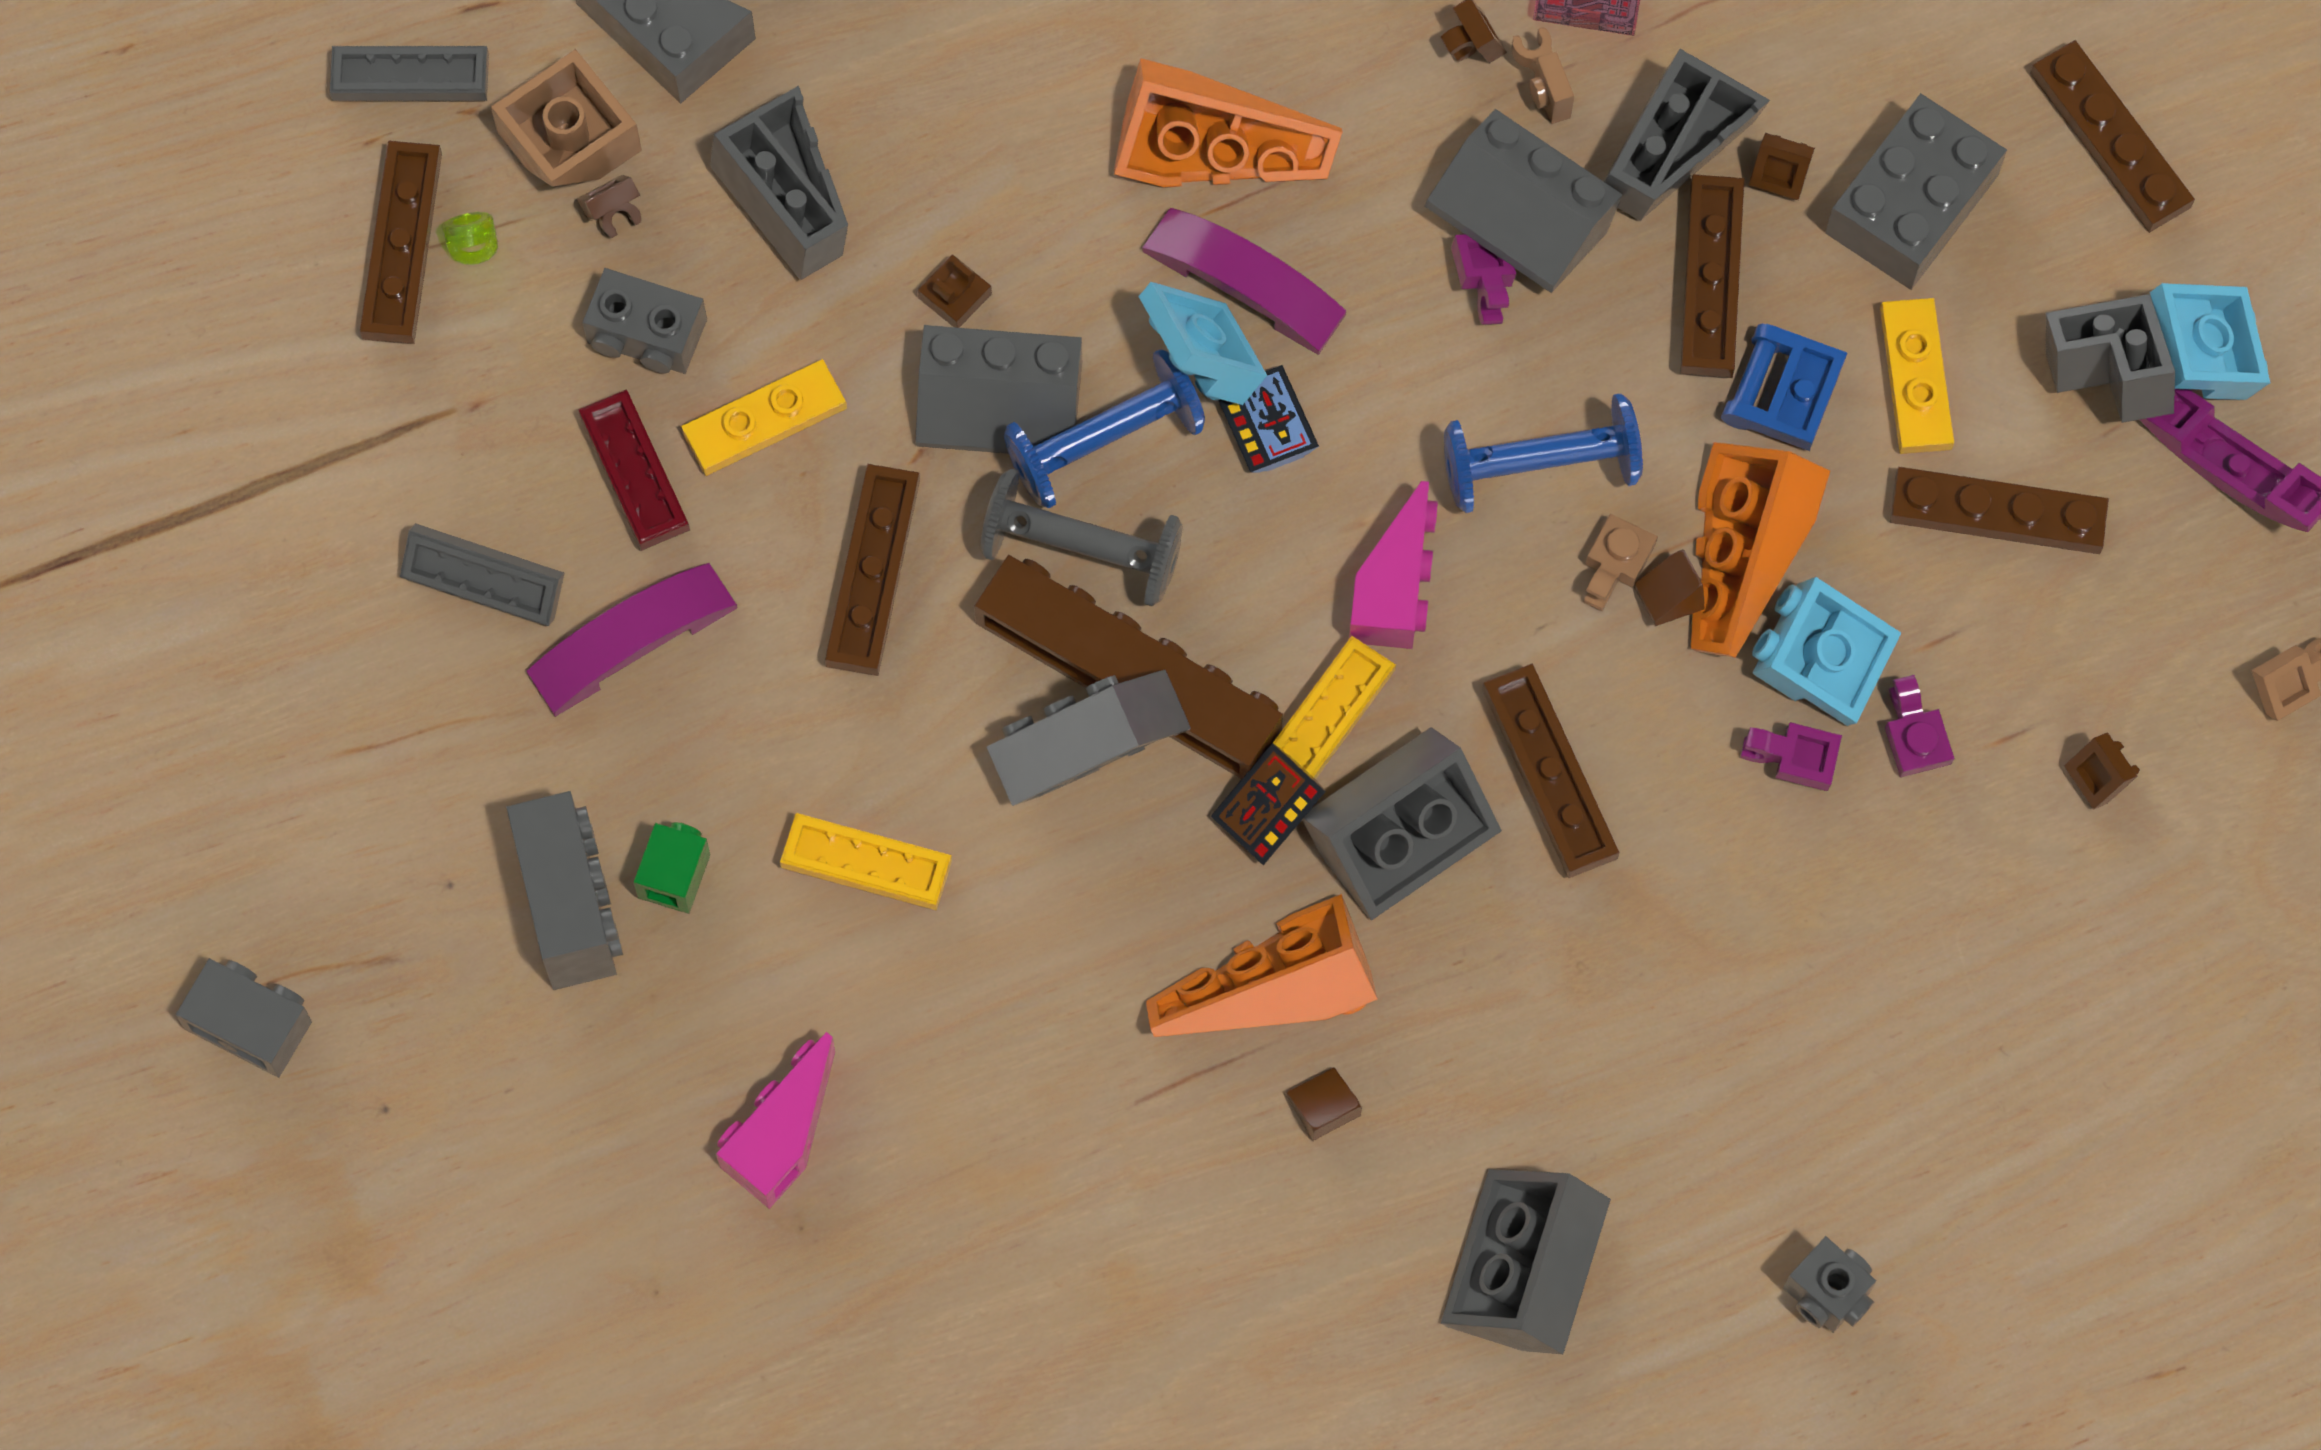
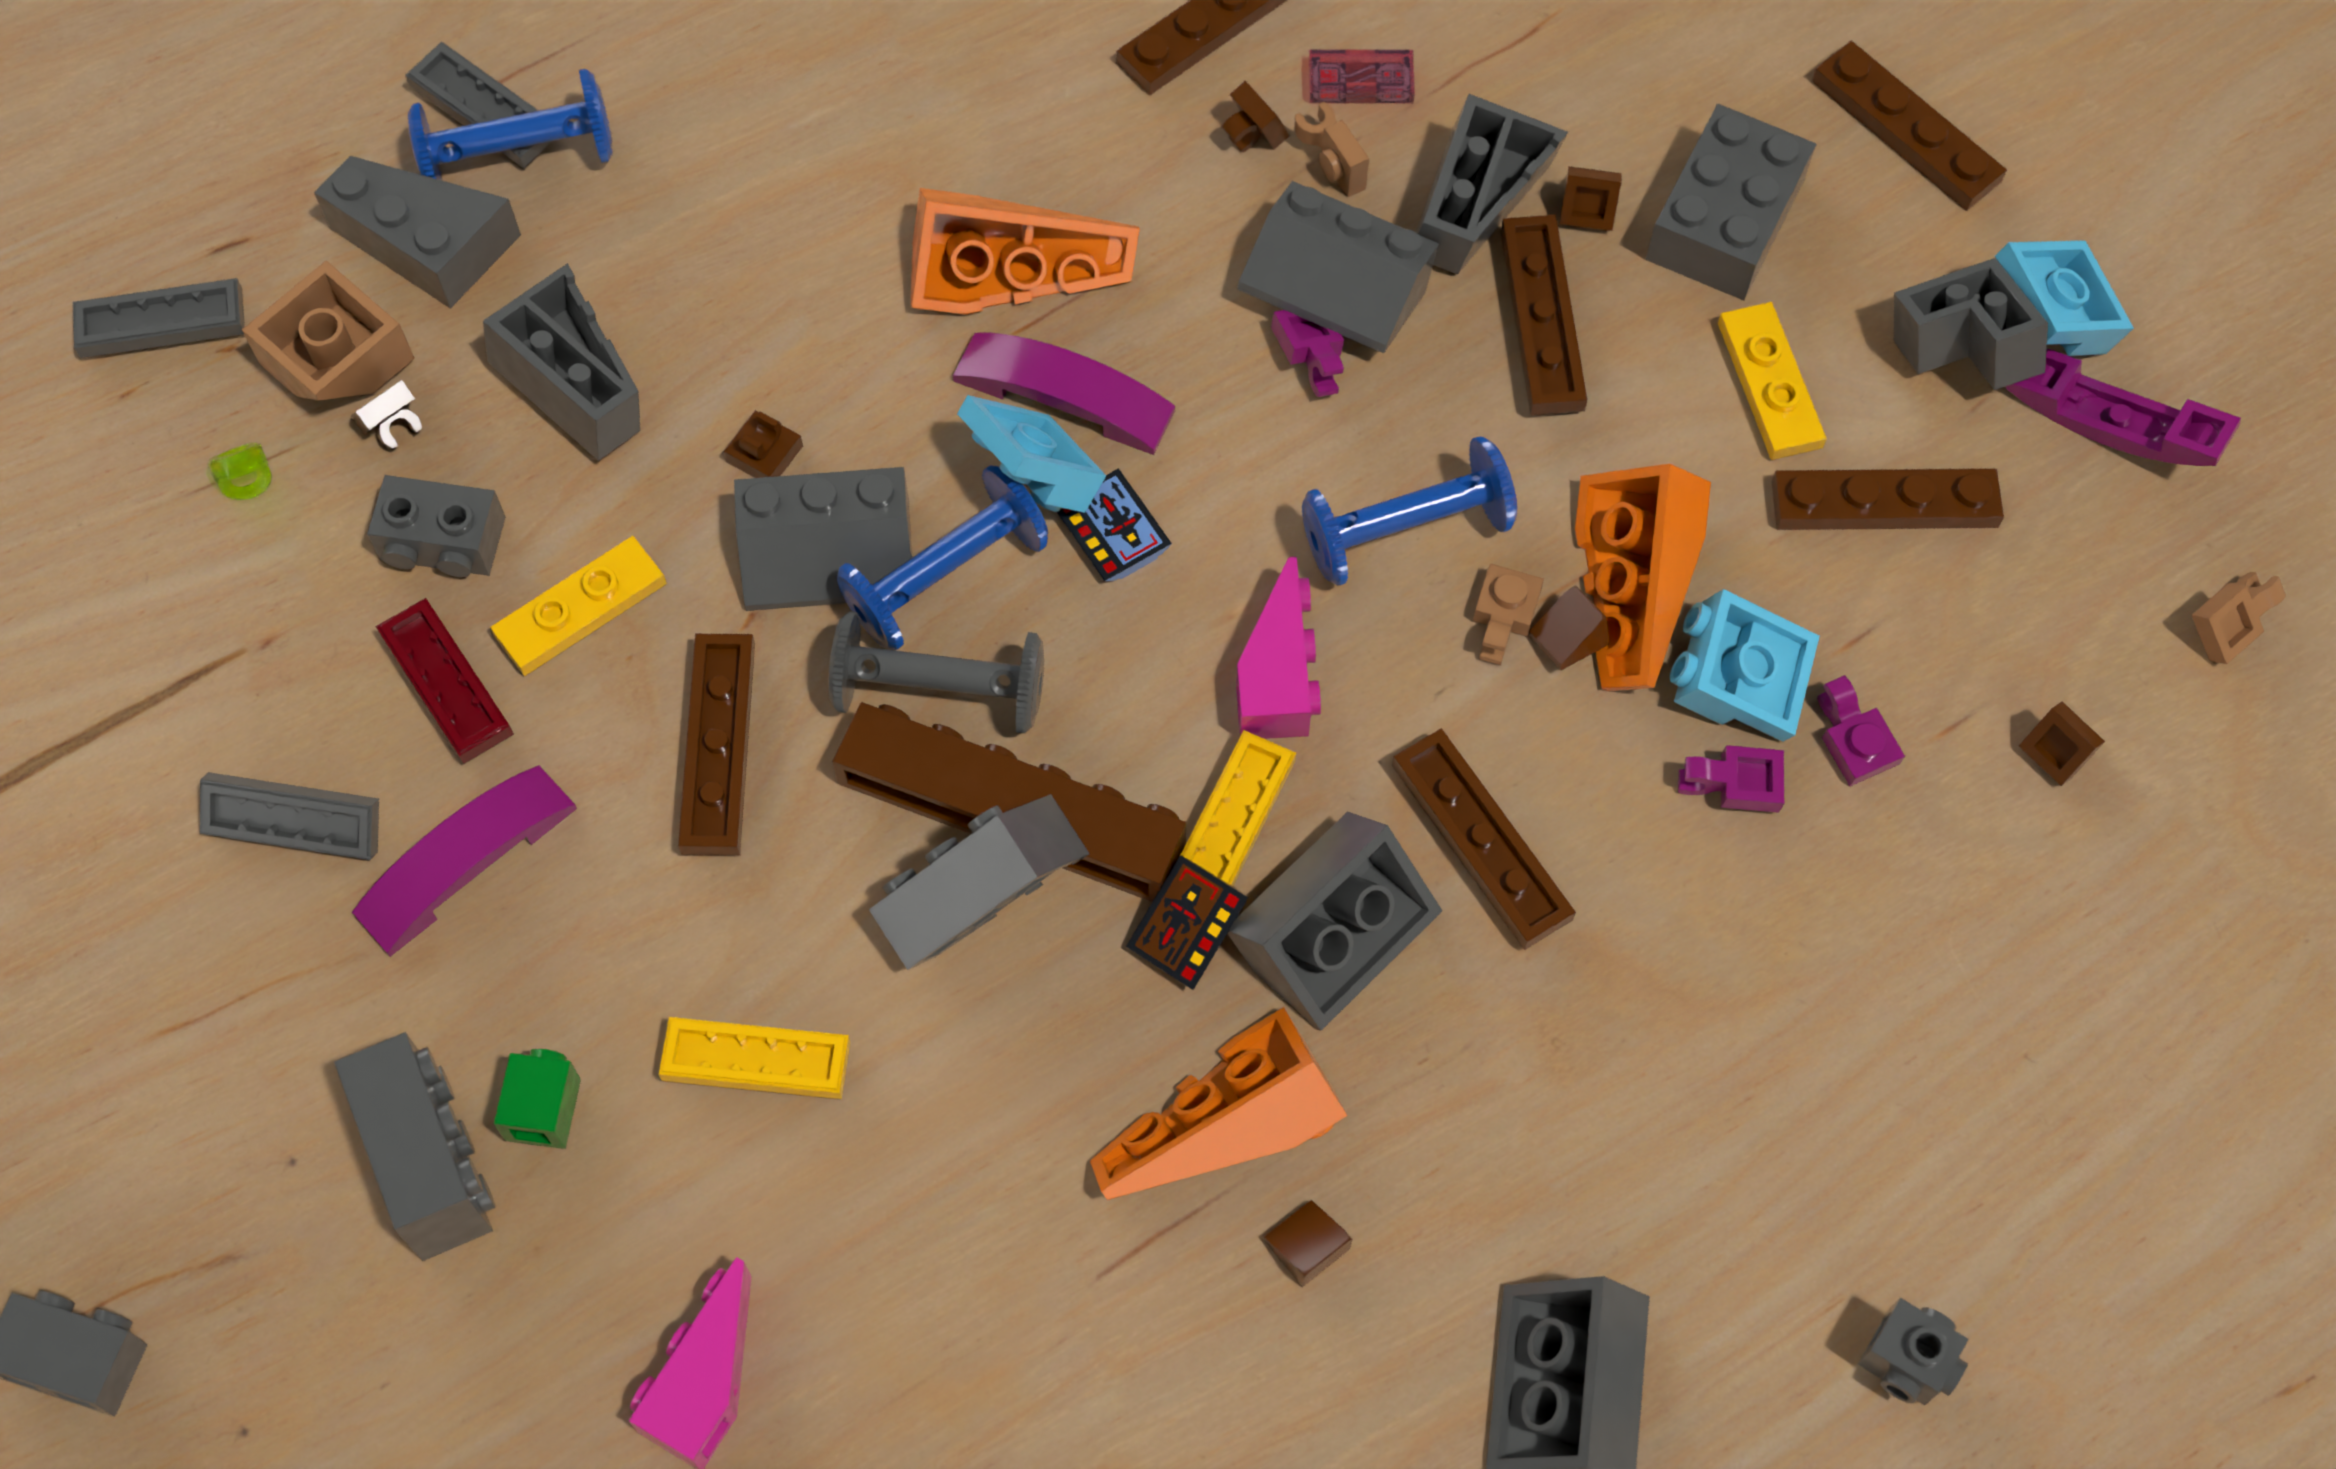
camera: 10 degrees left, 5 degrees down
(401, 242) = (166, 487): reddish brown plate -> none
(1801, 392) = (1659, 411): blue plate -> none

